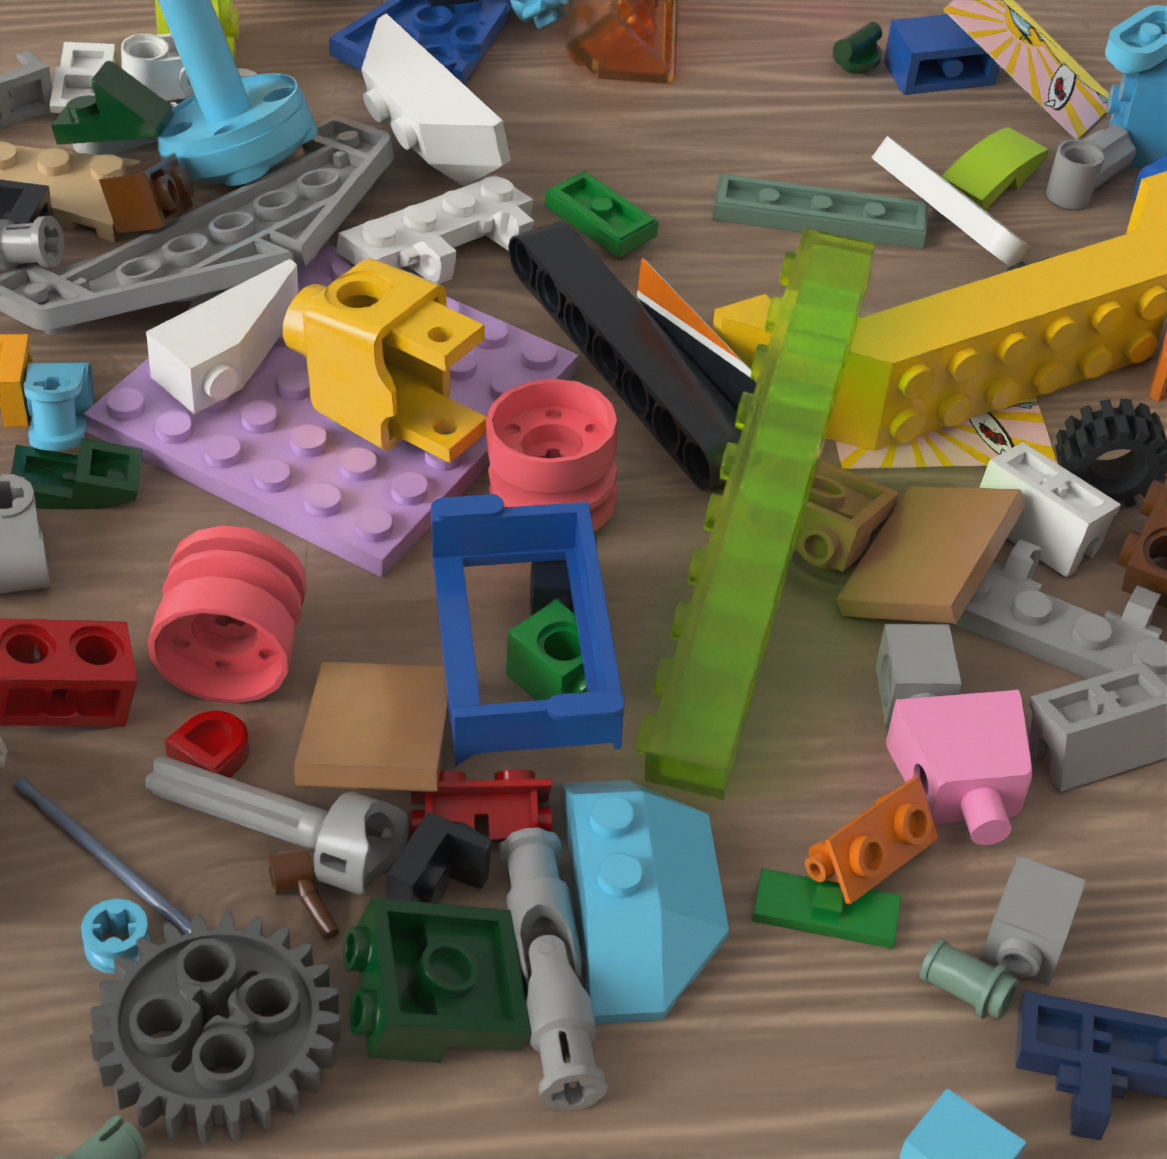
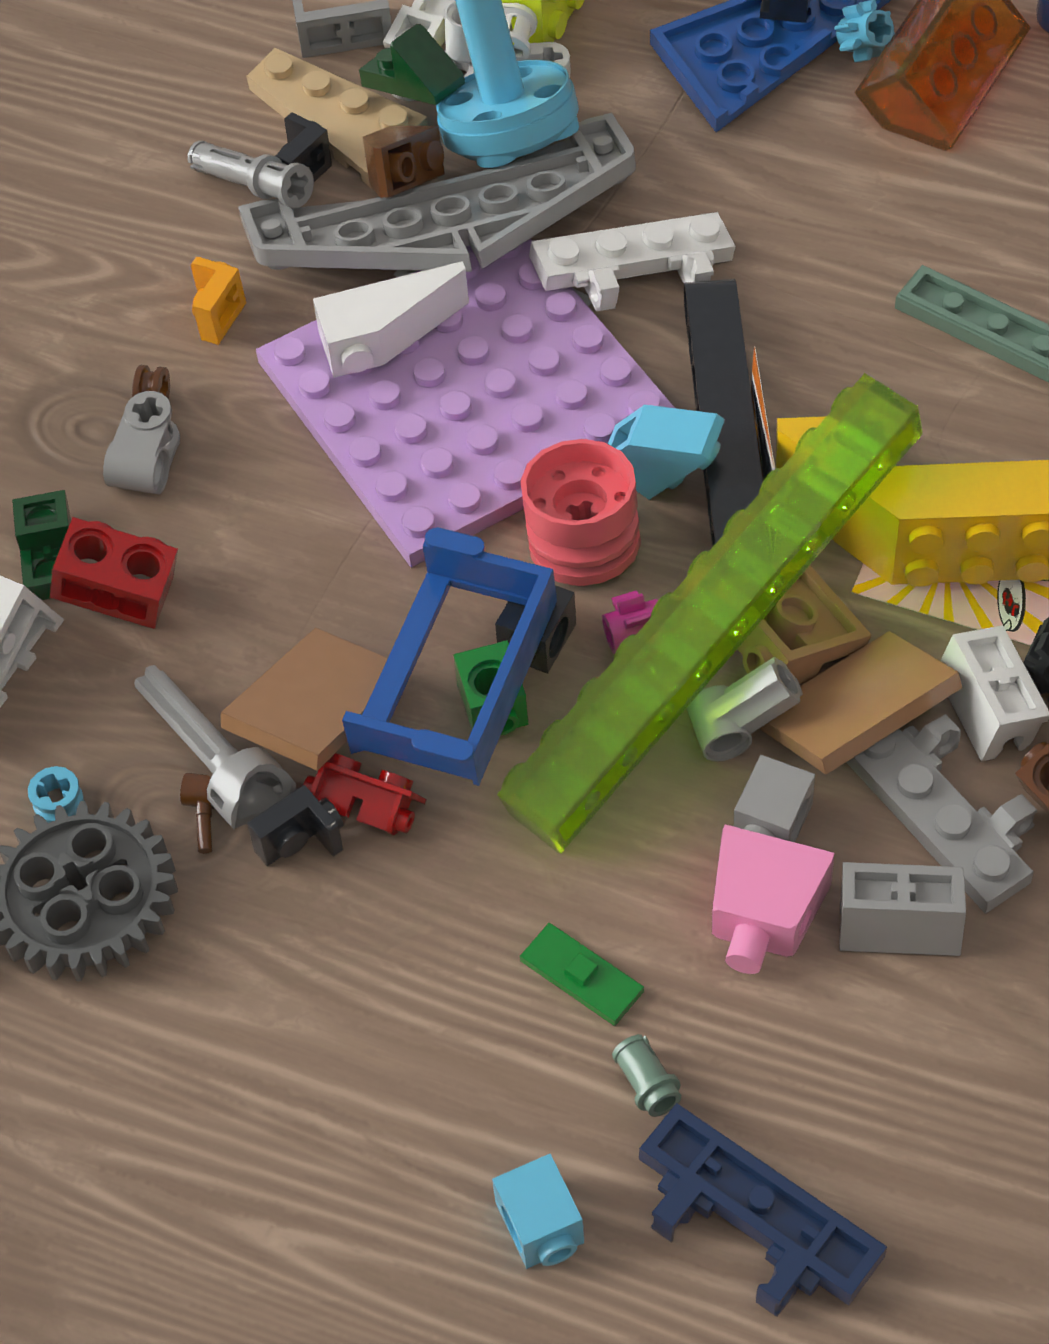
camera: 35 degrees right, 10 degrees up
(56, 402) = (236, 332): medium azure piece -> none
(94, 478) = (223, 406): dark green slope -> none
(105, 856) = (84, 730): sand blue piece -> none
(211, 742) = (202, 668): red tile -> none
(228, 615) = (252, 568): coral wheel -> none
(384, 356) = (484, 352): yellow piece -> none
(430, 107) = (669, 130): white wedge -> none
(435, 980) = (246, 917): dark green plate -> none
(556, 1001) = (327, 957): light grey piece -> none
(601, 213) = (787, 277): green plate -> none
(613, 361) = (666, 445): none -> medium azure slope
(641, 896) = (436, 904): medium azure wedge -> none
(665, 552) = (628, 618): none -> dark pink gear
(819, 606) = (728, 715): none -> light grey piece
(875, 842) = (643, 936): orange hinge -> none
(1033, 920) = (725, 1050): light grey brick -> none

